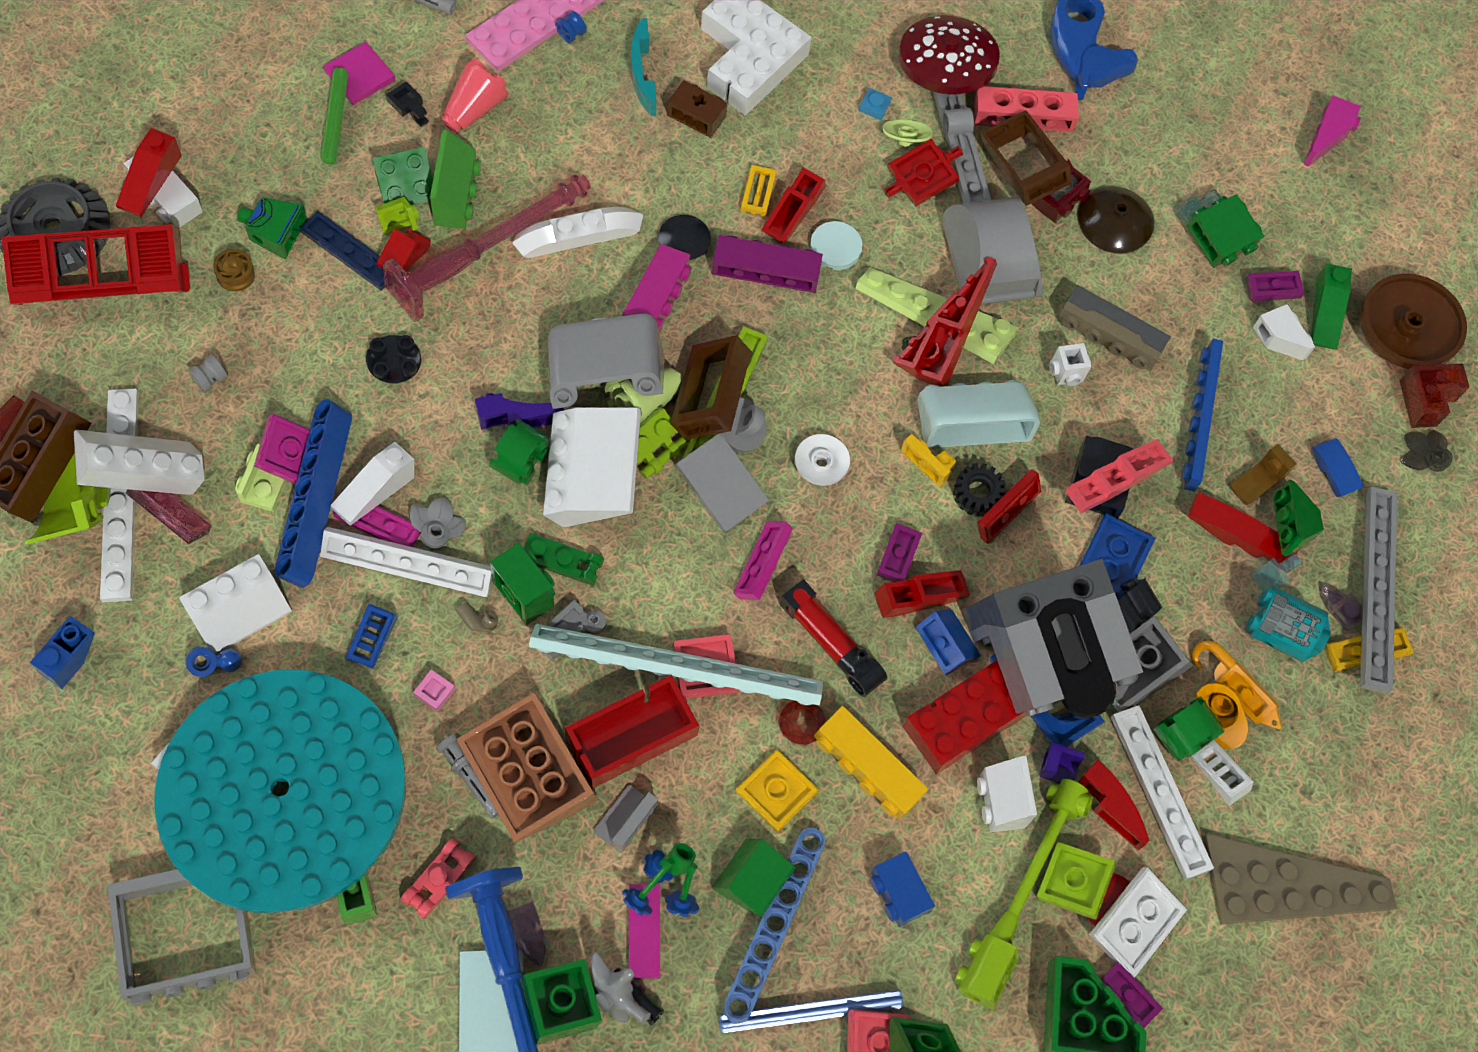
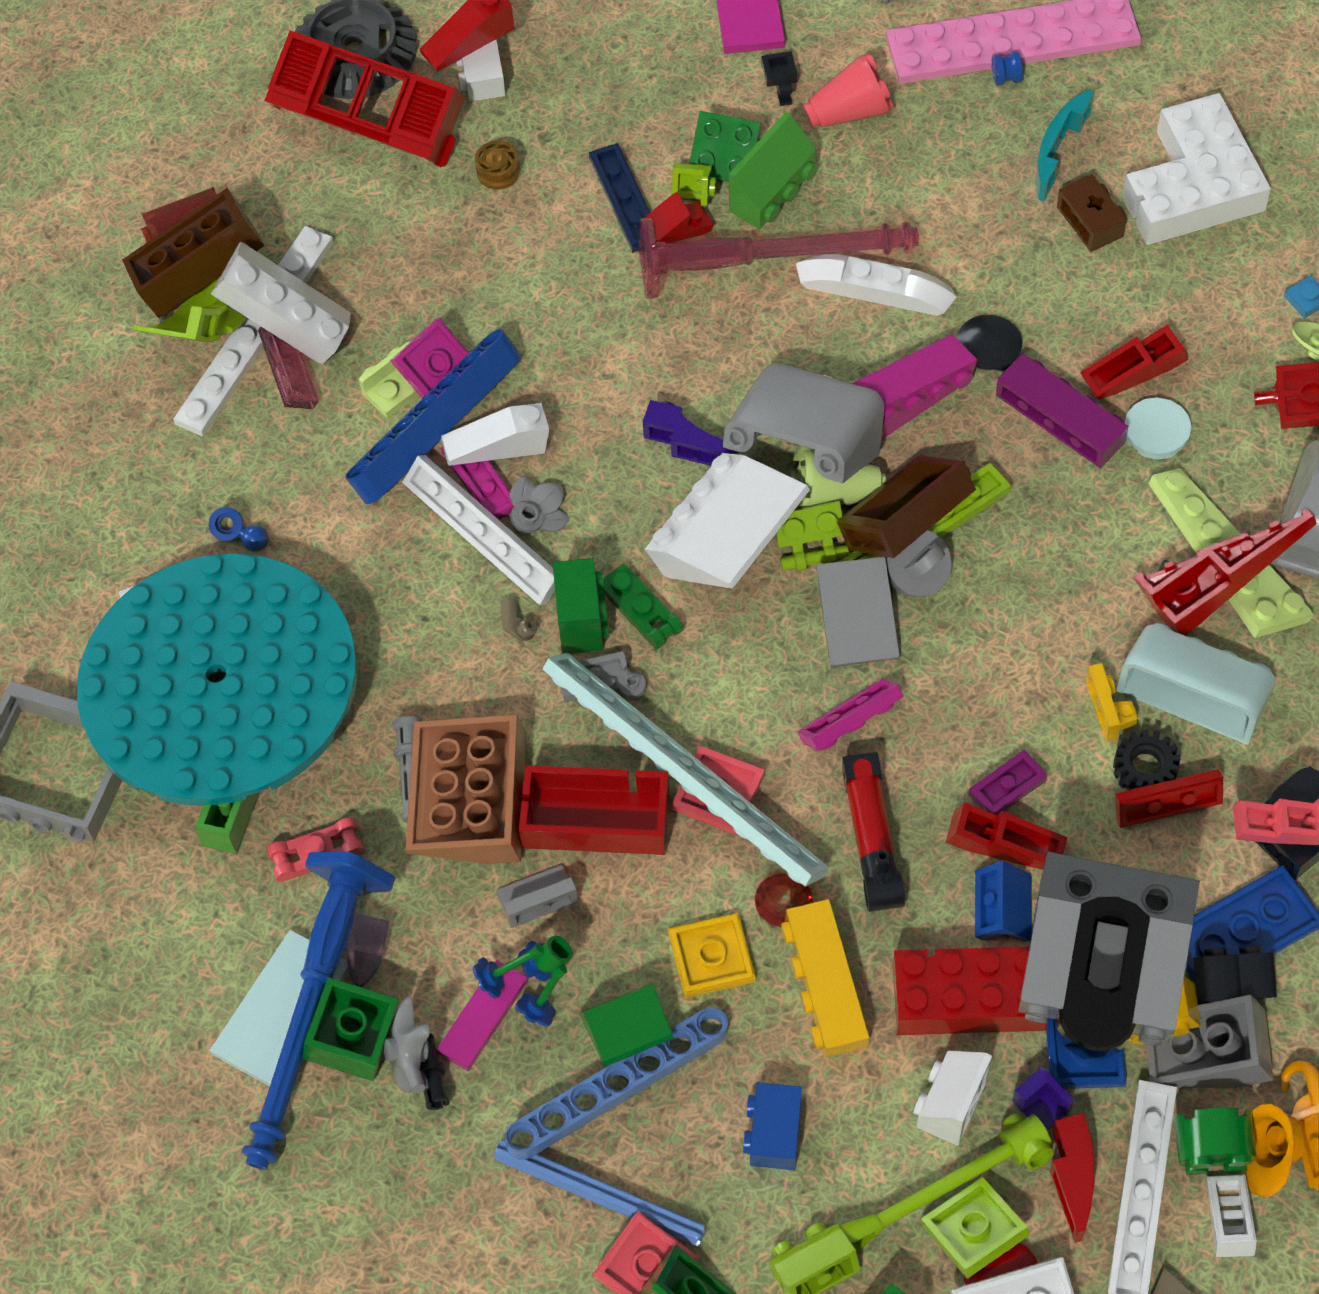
camera: 45 degrees right, 5 degrees down
(64, 652) = (108, 450): blue slope -> none
(208, 373) = (407, 253): light grey wheel -> none
(235, 604) = (292, 486): white slope -> none
(273, 224) = (564, 137): green torso -> none
(334, 116) = (695, 55): bright green axle -> none
(381, 640) = (409, 593): blue slope -> none
(393, 358) = (599, 324): black dish -> none
(434, 690) = (427, 668): bright pink plate -> none
(519, 452) = (661, 475): green brick -> none
(755, 208) = (1090, 348): yellow tile -> none
(822, 448) = (989, 630): white dish -> none

